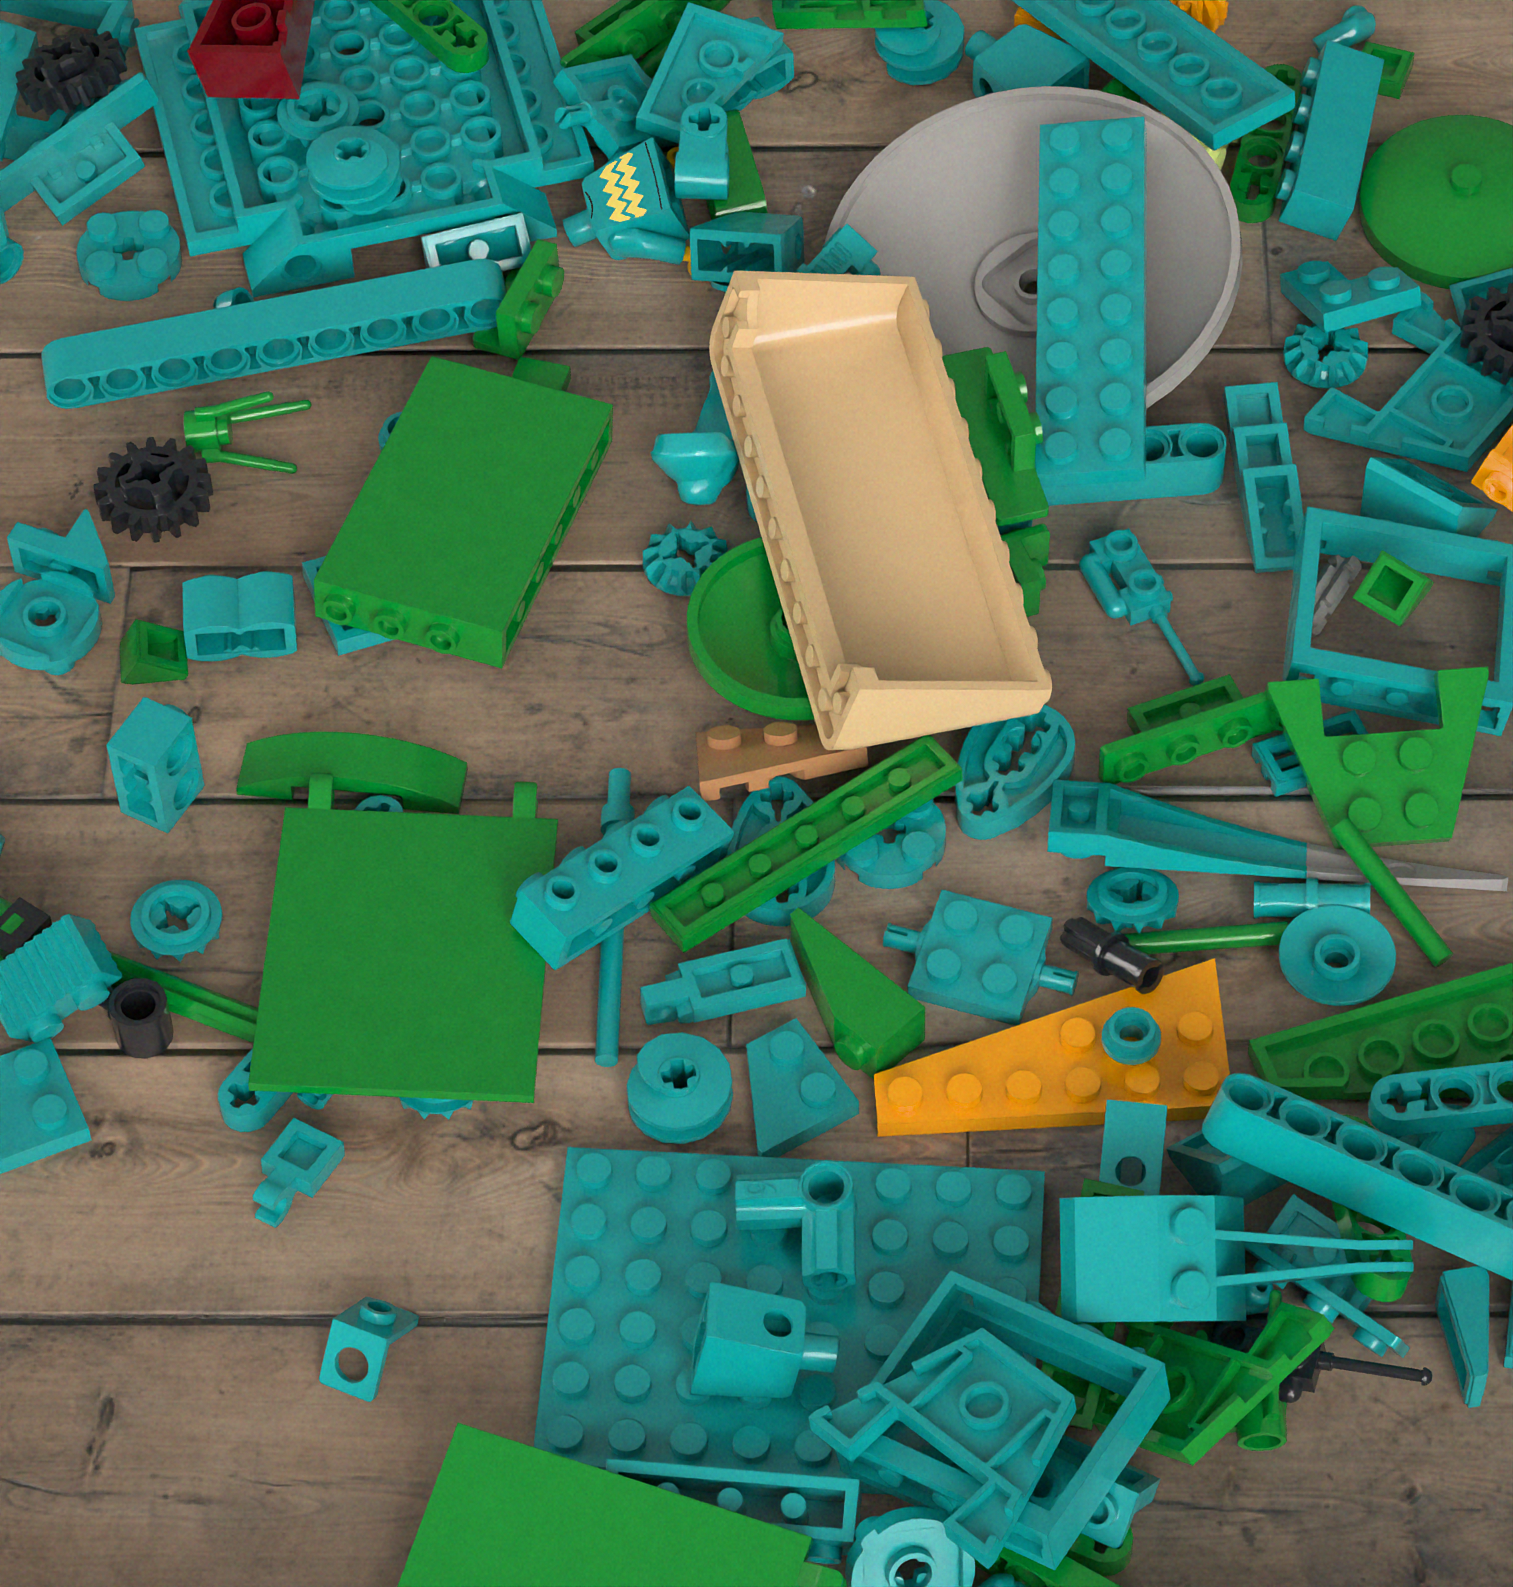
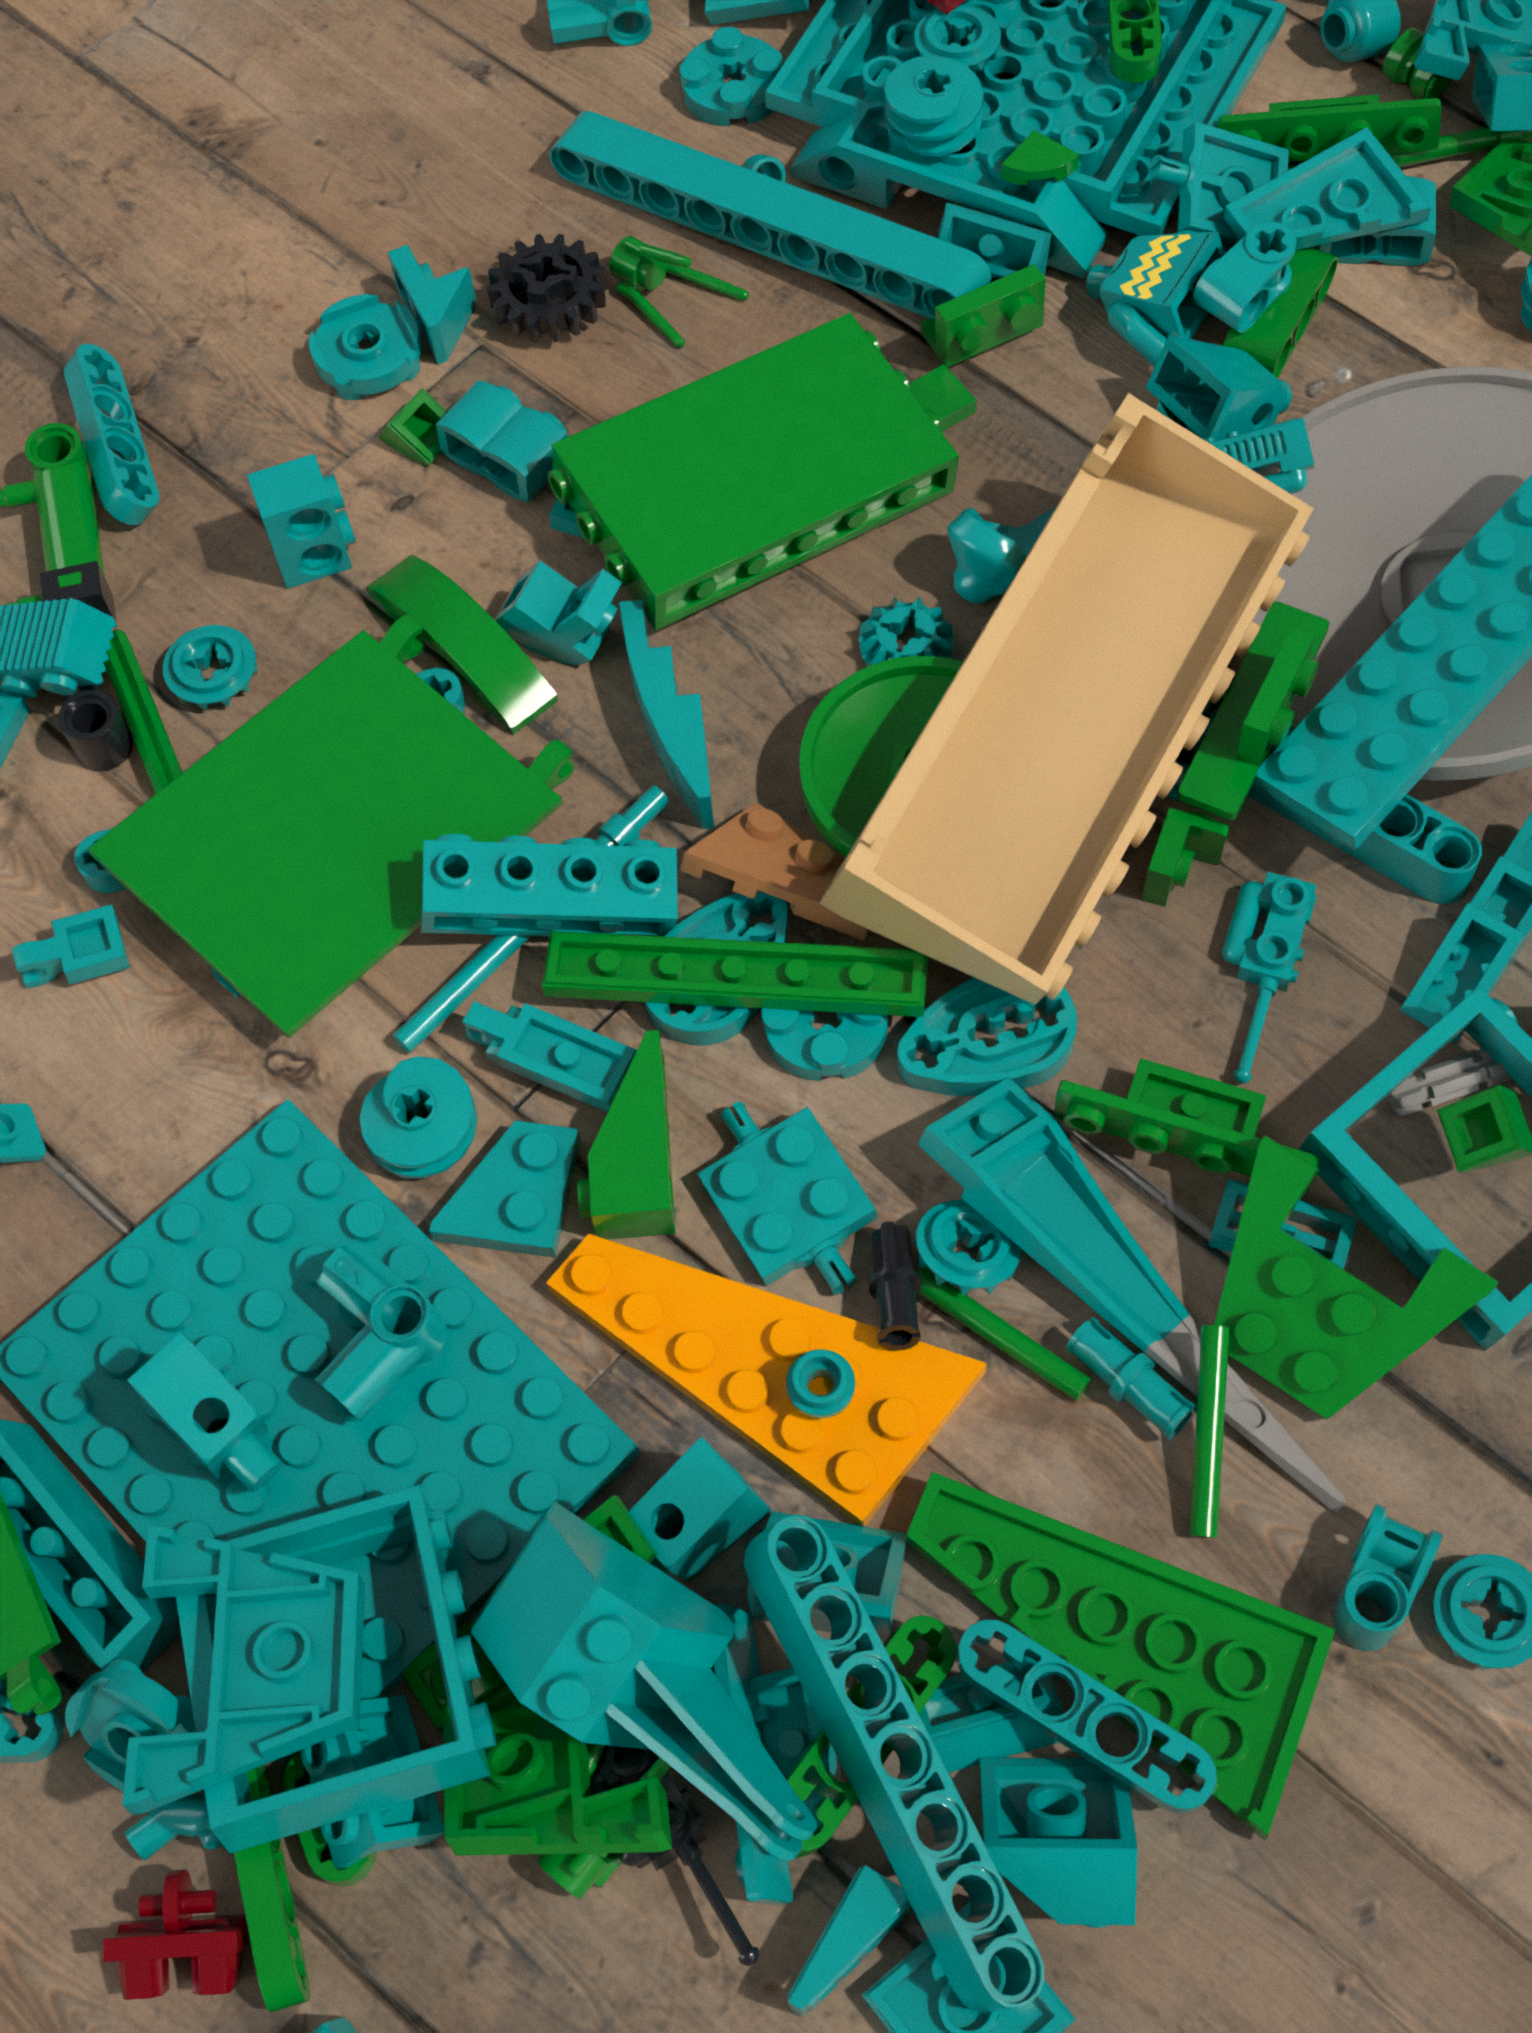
camera: 45 degrees right, 10 degrees up
(423, 705) = (558, 617): none -> teal brick
(472, 163) = (1039, 159): none -> green tile
(582, 722) = (671, 720): none -> teal slope
(1342, 937) = (1104, 1421): teal dish -> none

